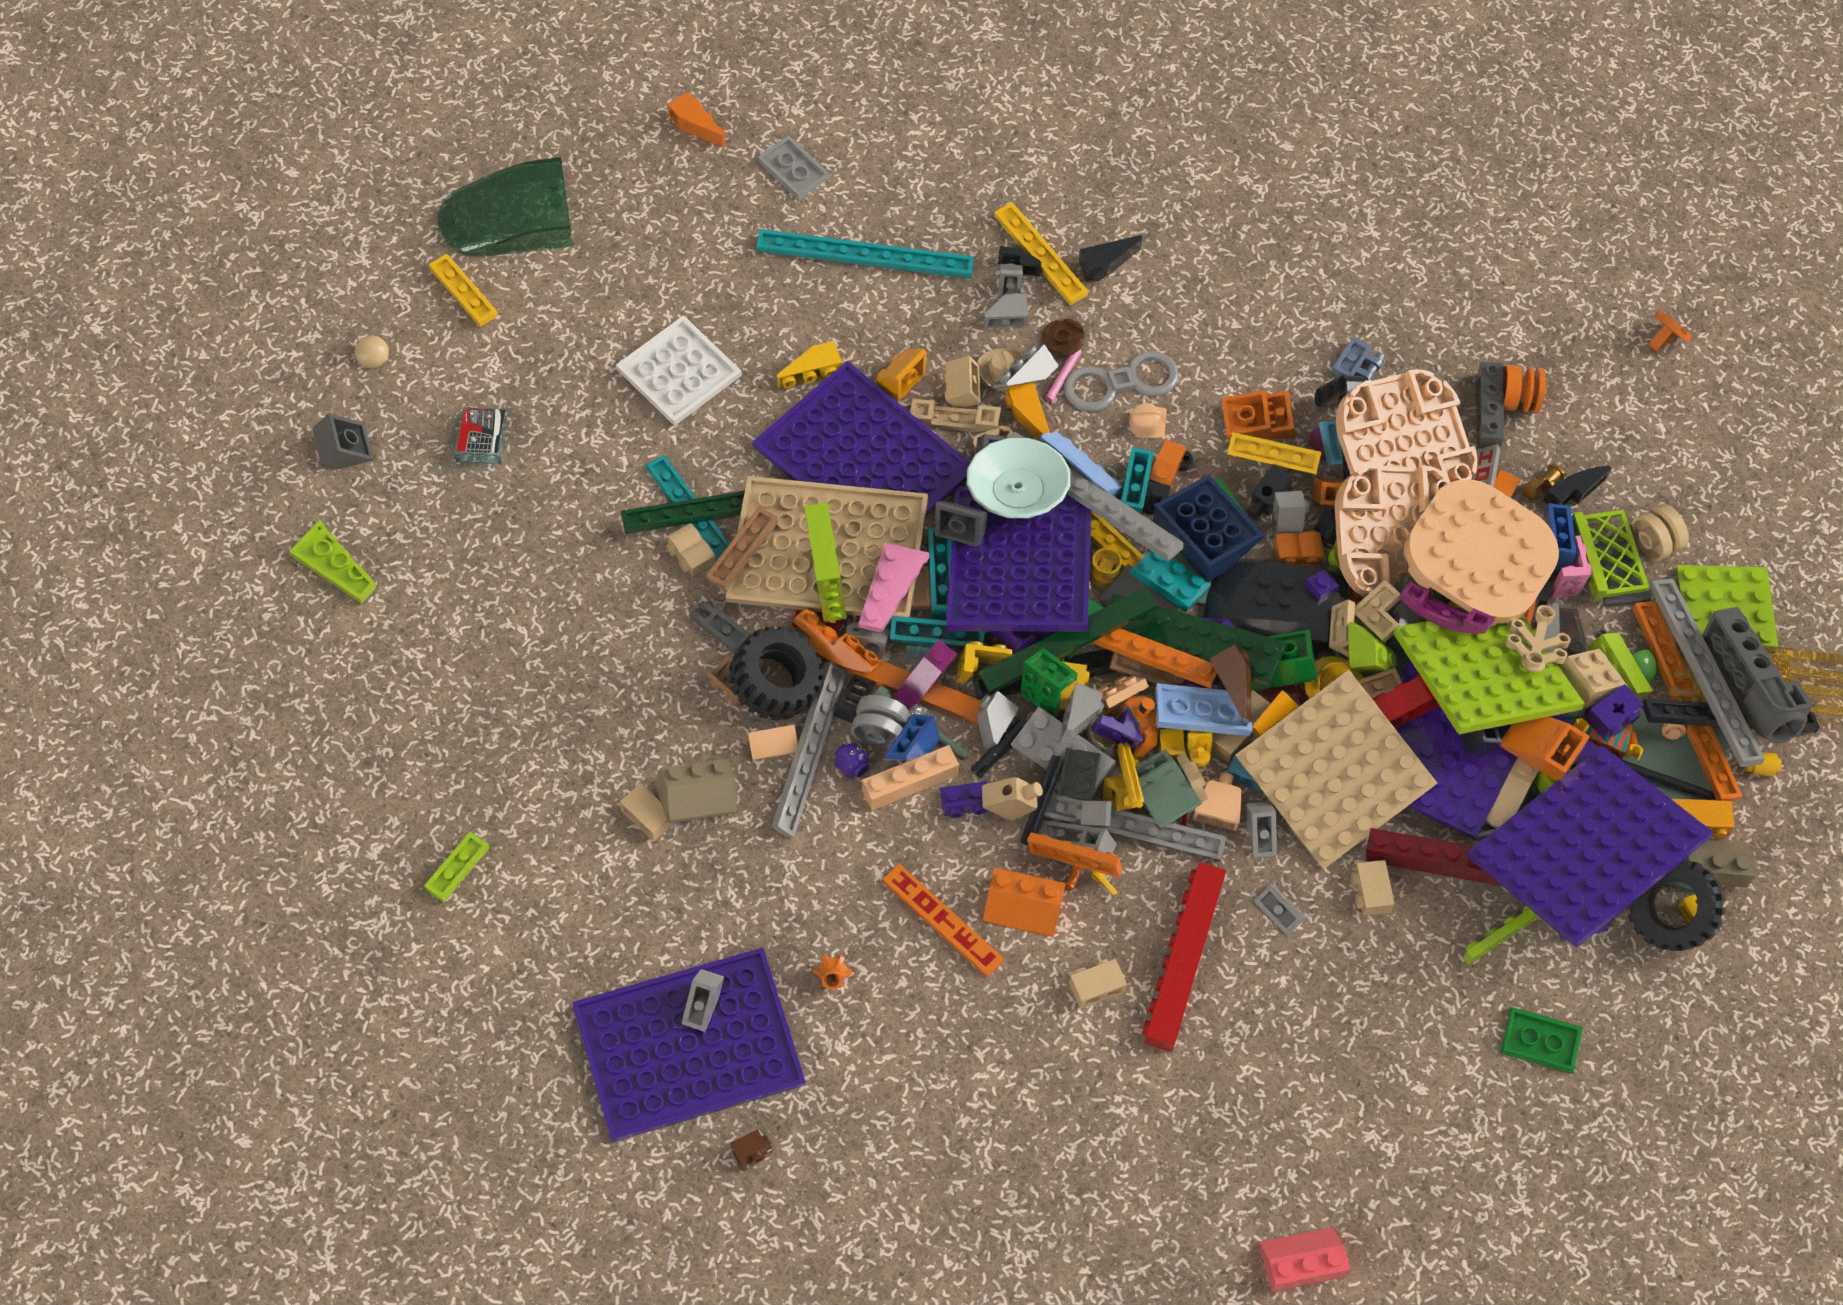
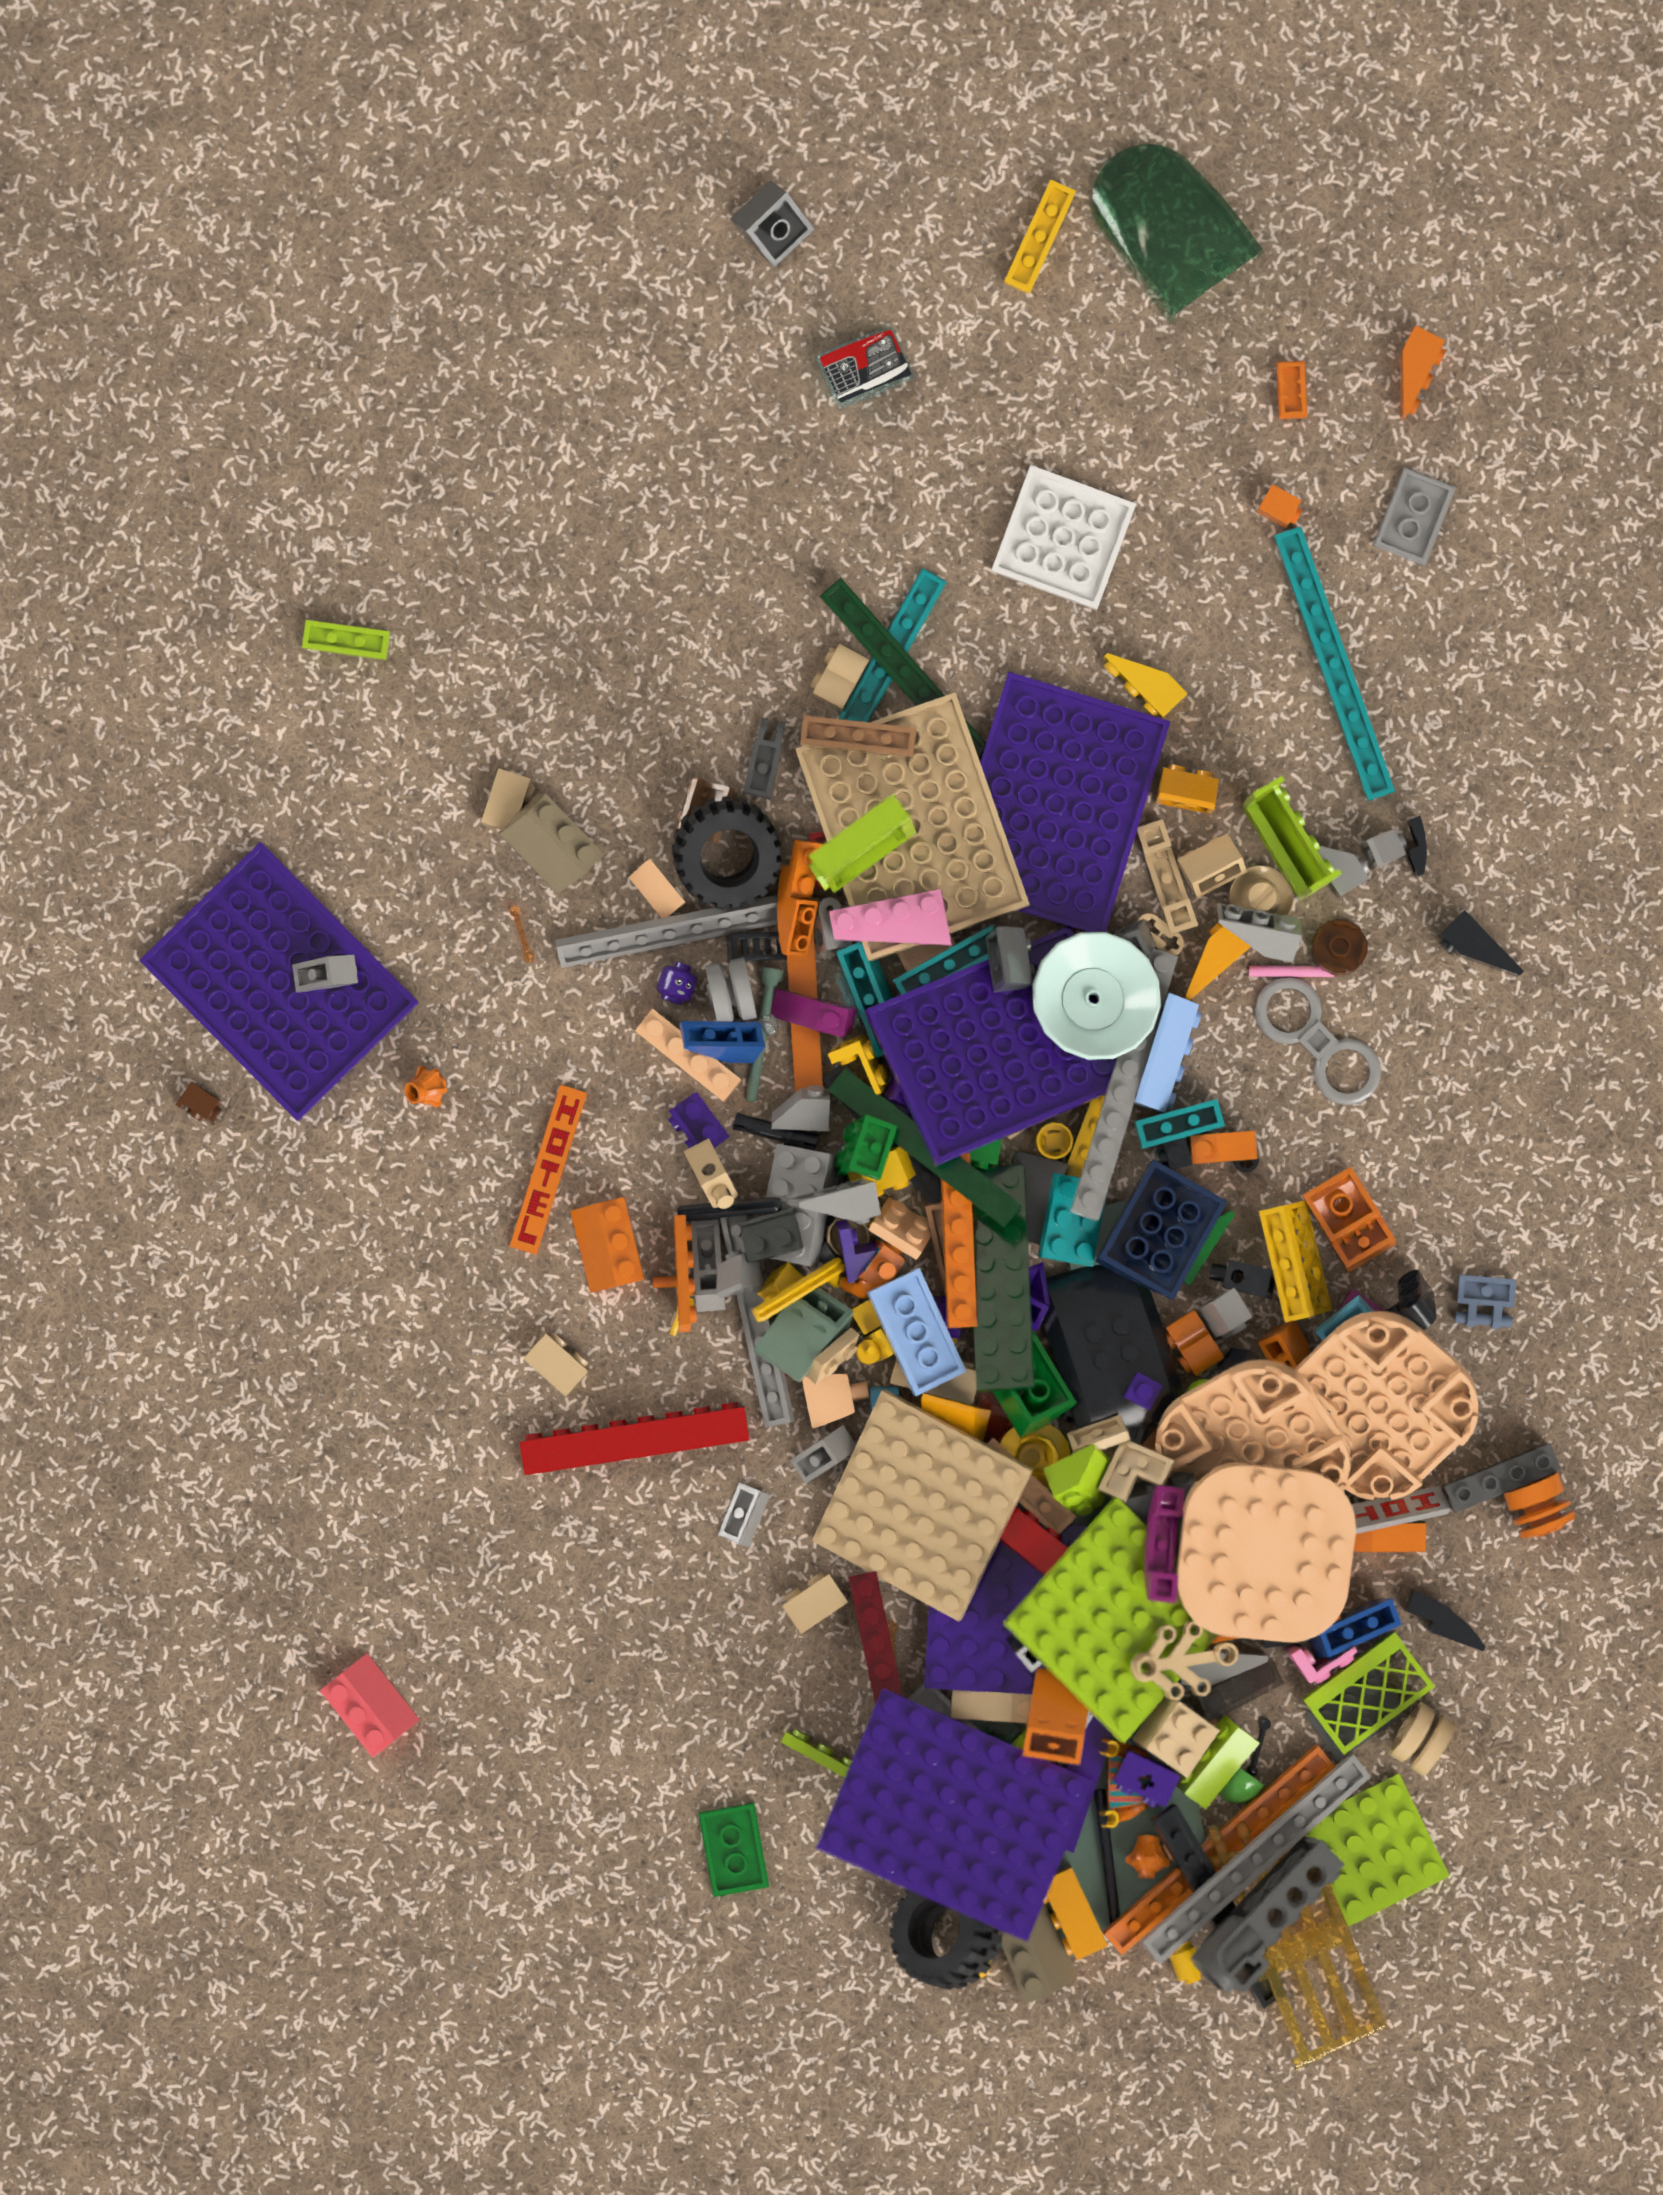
camera: 70 degrees right, 25 degrees up
(331, 561) = (624, 296): lime wing -> none
(371, 351) = (906, 184): tan hair -> none
(664, 195) = (1291, 390): none -> orange plate
(738, 234) = (1280, 507): none -> orange brick
(772, 857) = (528, 956): none -> clear orange hinge
(974, 327) = (1287, 840): none -> lime windscreen
(1033, 243) = (1443, 865): yellow plate -> none
(1148, 421) = (1280, 1097): light nougat piece -> none
(1236, 677) = (962, 1350): reddish brown slope -> none
(1544, 482) = (1434, 1583): pearl gold connector -> none
(1672, 747) = (1147, 1857): none -> orange rock

